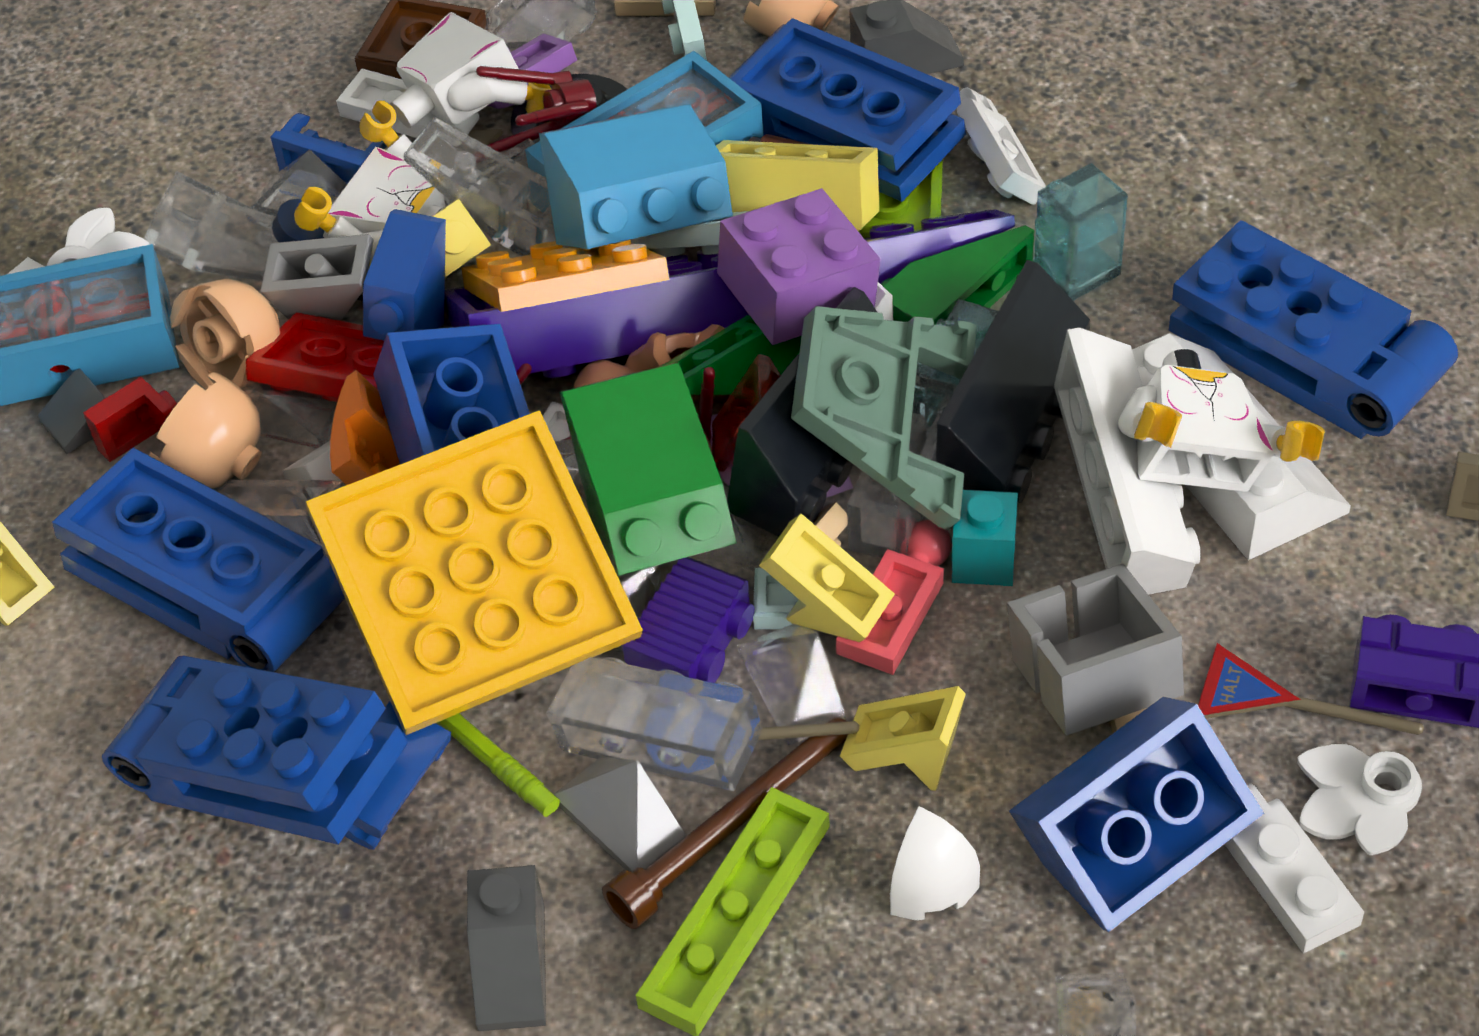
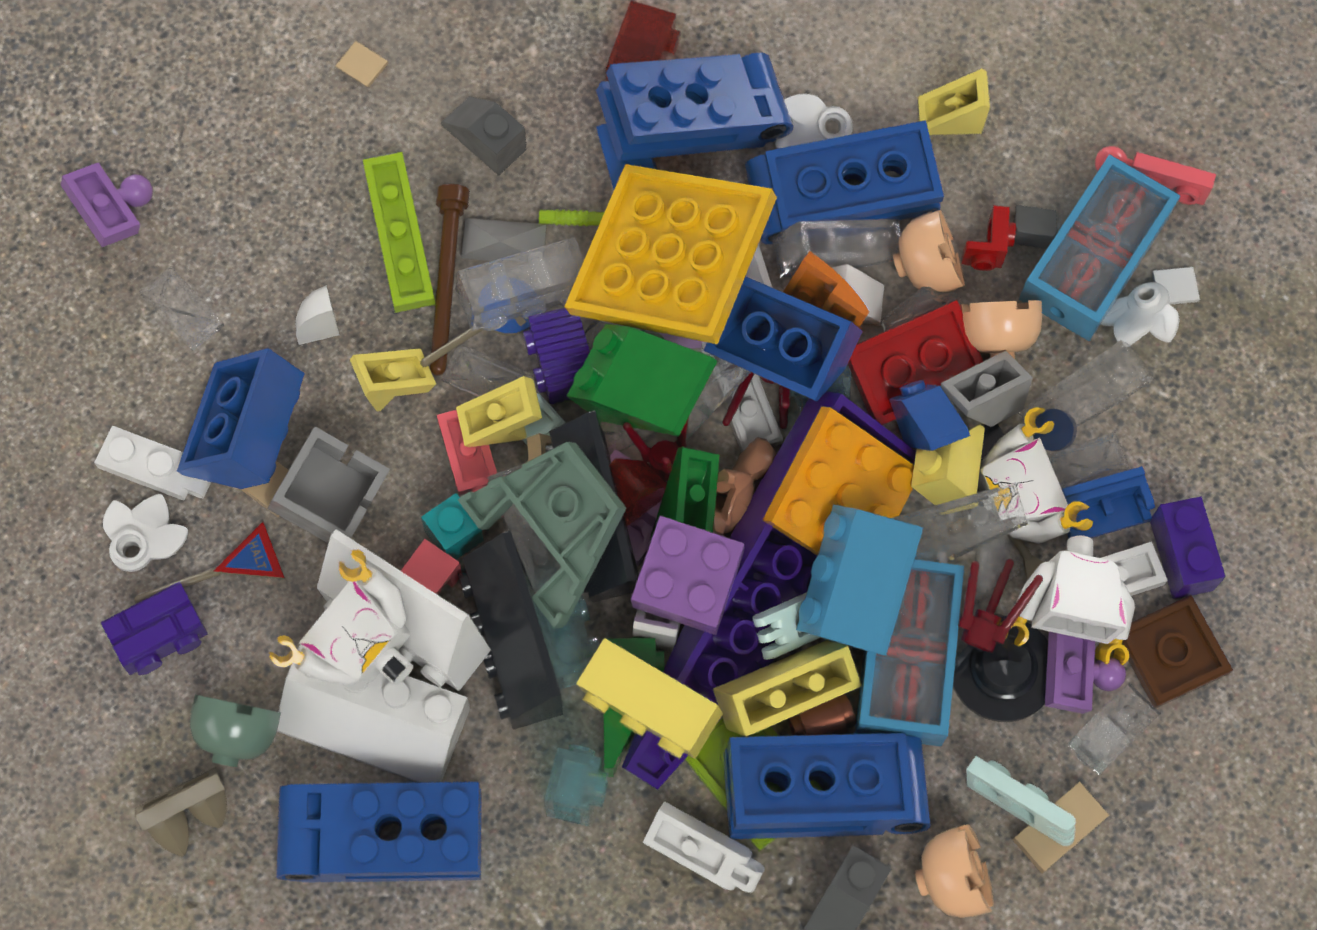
camera: 130 degrees right, 20 degrees up
(141, 656) = (809, 120): none -> white plate
(222, 897) = (645, 35): none -> clear red brick
(312, 74) = (1187, 547): none -> dark purple brick
(940, 221) = (648, 700): none -> light yellow brick
(1055, 517) = (432, 567): none -> coral panel
(1398, 503) = (232, 729): none -> sand green cylinder

